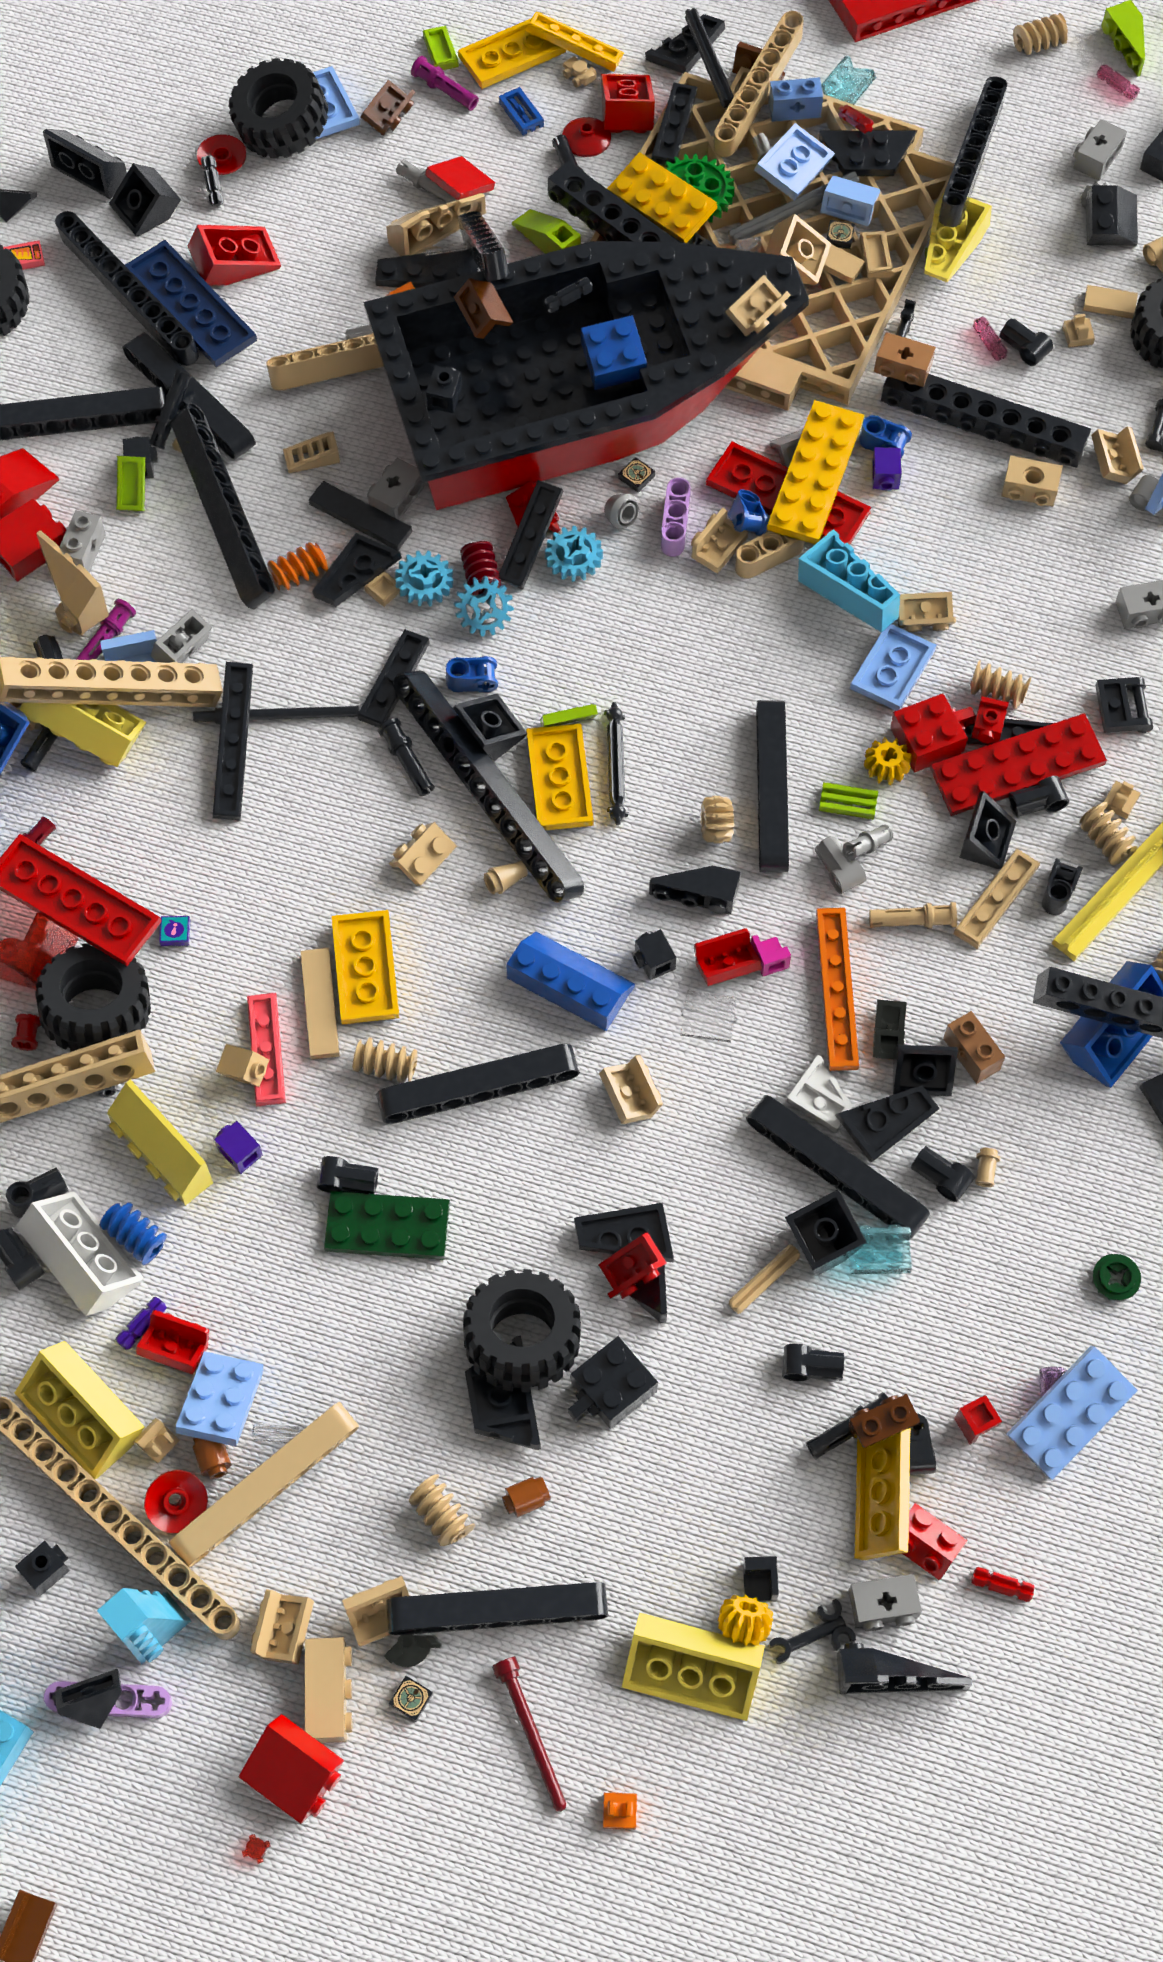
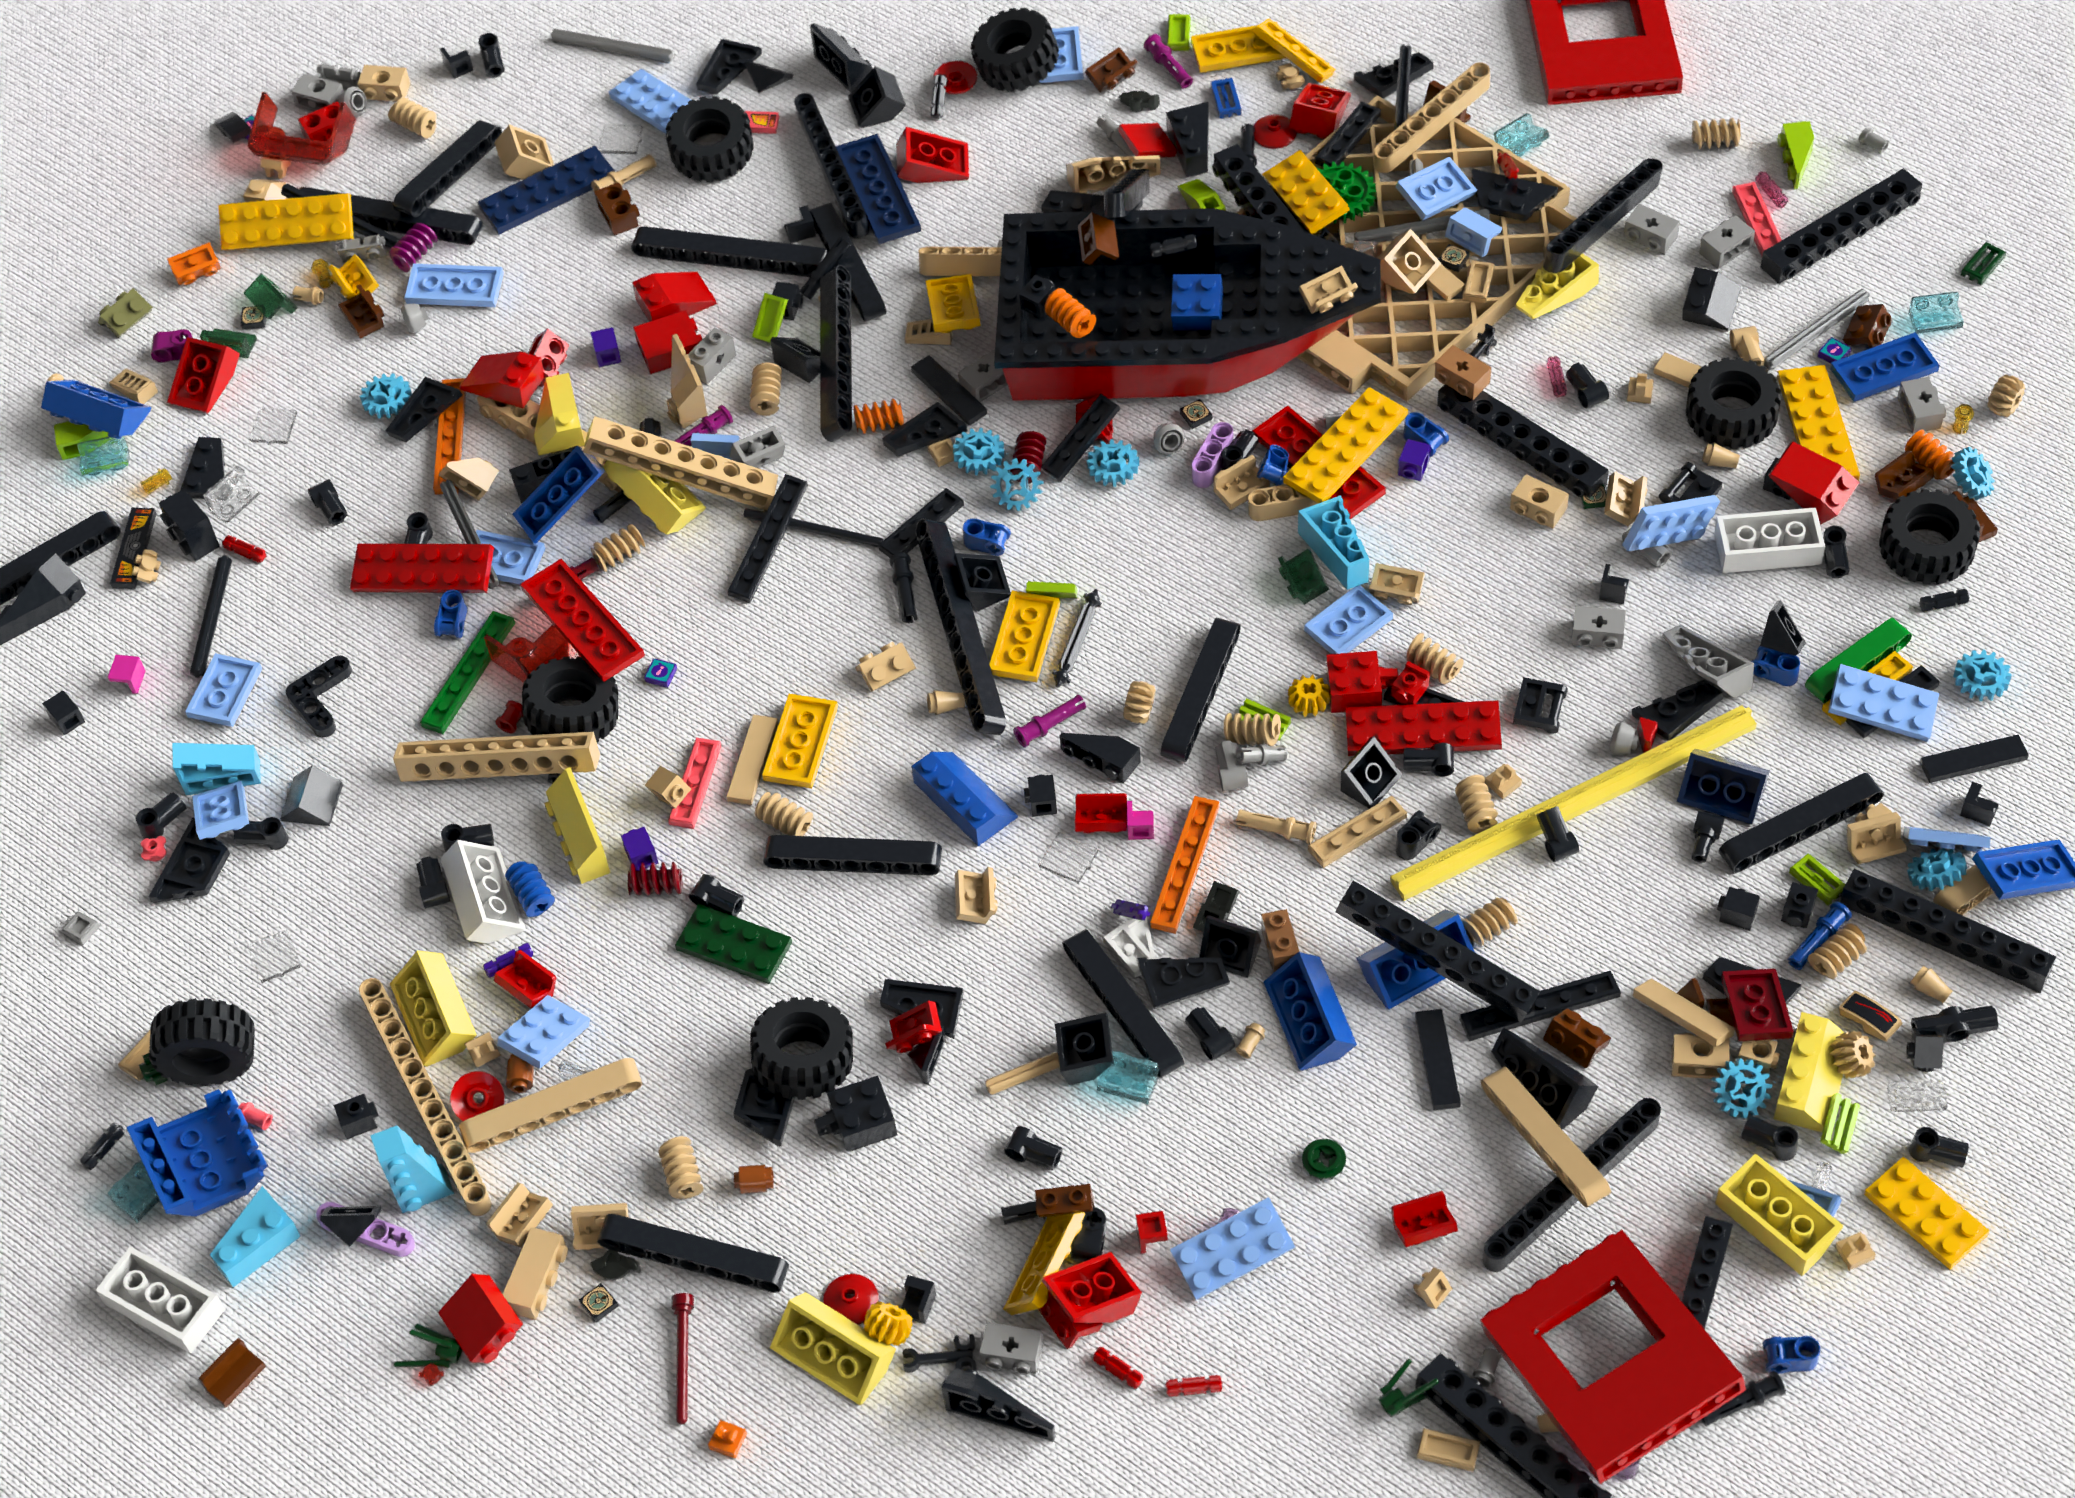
camera: 25 degrees right, 10 degrees down
(67, 795) = (617, 546): none -> tan piece
(120, 369) = (801, 229): none -> black panel
(159, 566) = (765, 388): none -> tan piece
(179, 521) = (796, 357): none -> black slope
(263, 1814) = (446, 1349): none -> dark green plant
(270, 1177) = (655, 879): none -> dark red piece
(329, 415) = (953, 303): none -> yellow plate
(430, 134) = (1139, 99): none -> pearl dark grey piece
(487, 403) = (1069, 313): none -> orange piece
(505, 162) = (1190, 136): none -> black wedge
(619, 874) = (1039, 725): none -> magenta pin
(697, 1612) = (856, 1307): none -> red dish
(700, 506) = (1239, 449): none -> black piece
(795, 99) = (1461, 138): medium blue brick -> none
(805, 1059) = (1130, 909): none -> dark purple axle
(828, 628) = (1303, 576): none -> clear green bracket
(848, 817) = (1251, 731): none -> tan piece
(953, 1510) = (1094, 1290): none -> red slope
(1019, 153) = (1651, 229): none -> light grey brick
(1035, 1117) = (1309, 1011): none -> blue slope
(1087, 463) = (1597, 500): none -> tile
(1089, 1578) = (1194, 1385): none -> red axle
(1111, 109) = (1756, 215): none -> coral tile
(1143, 556) = (1613, 588): none -> black panel

